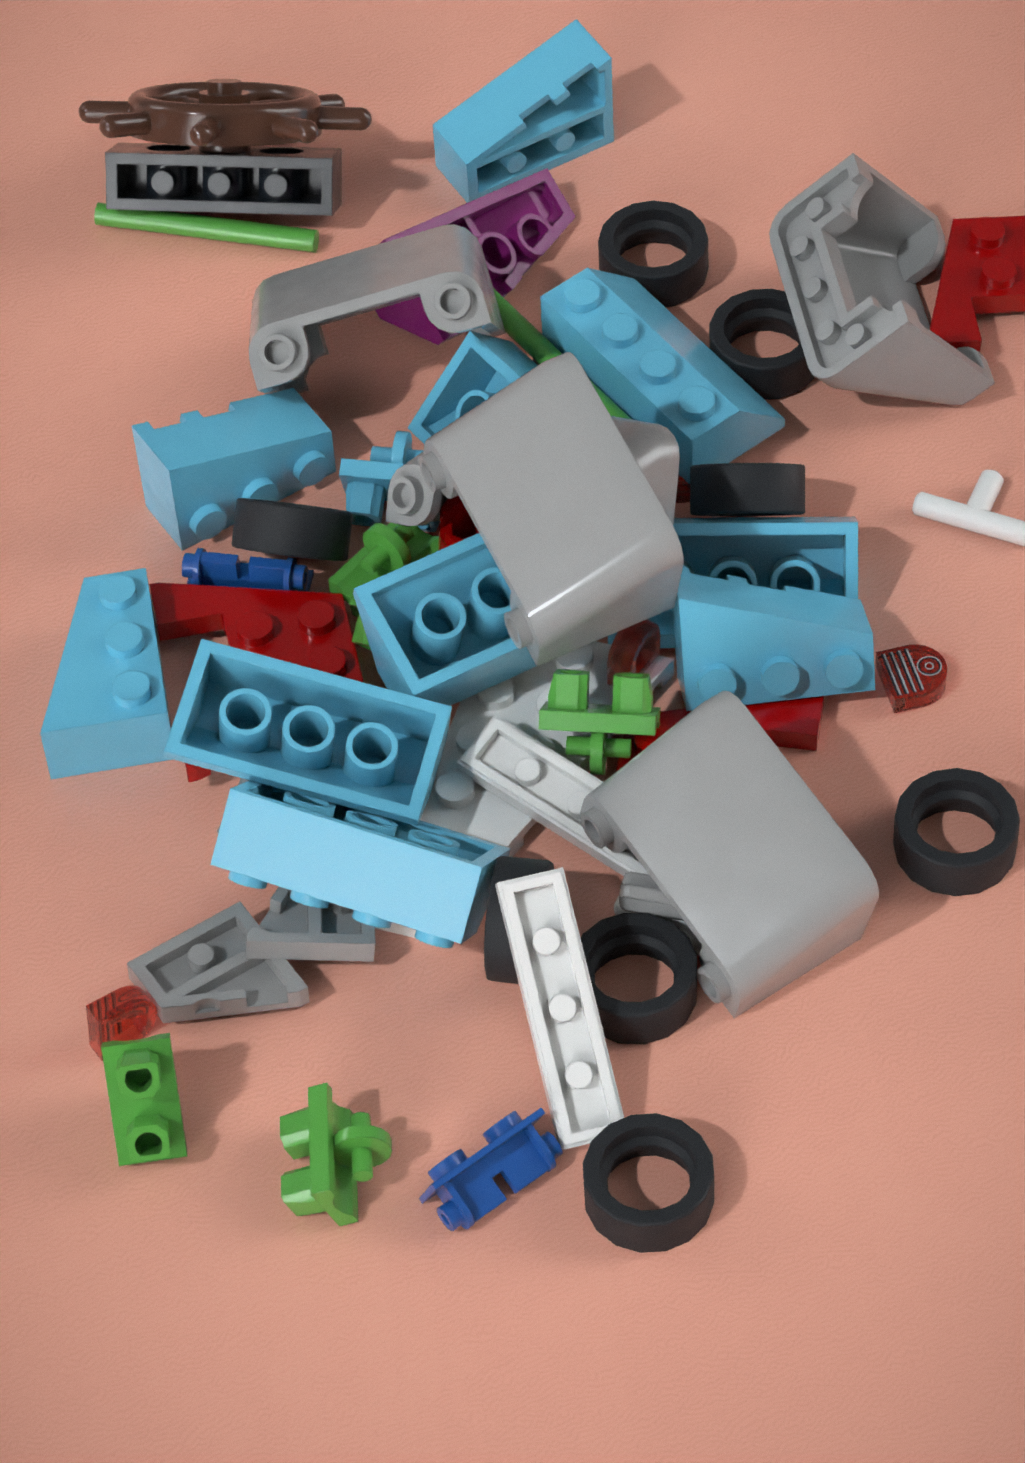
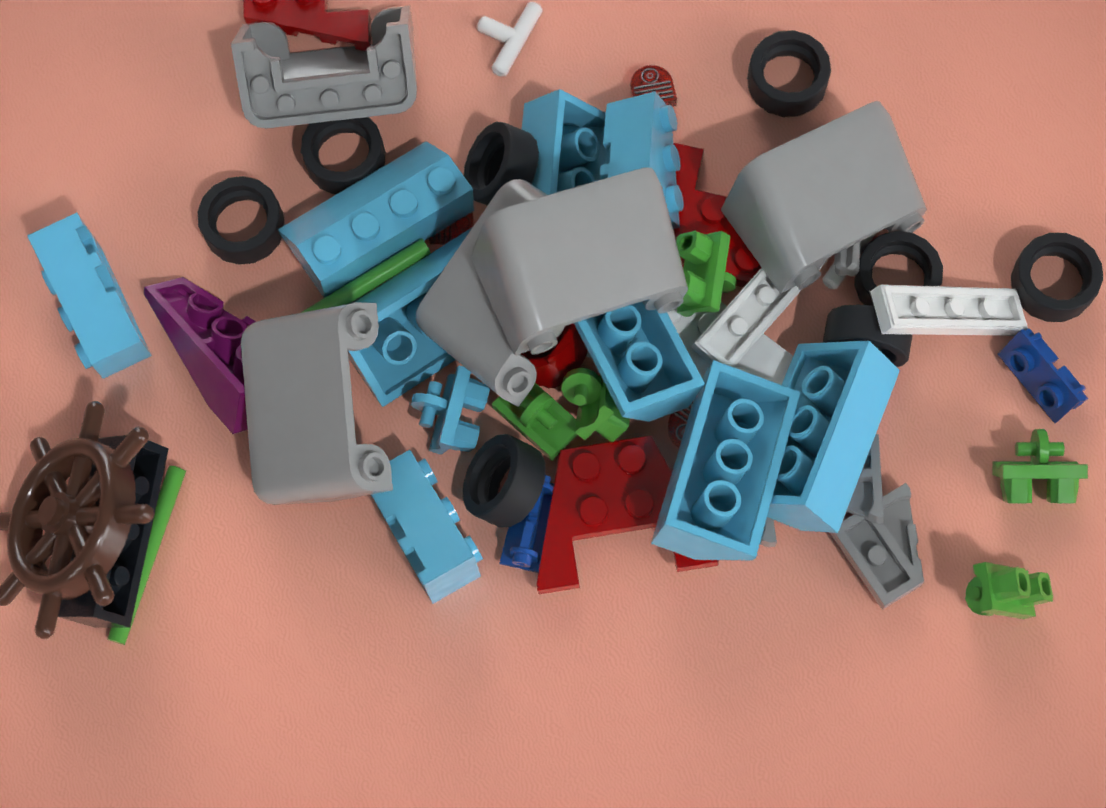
camera: 85 degrees left, 20 degrees up
(110, 682) = (624, 617): medium azure wedge -> none
(120, 1017) = (926, 612): clear red tile -> none

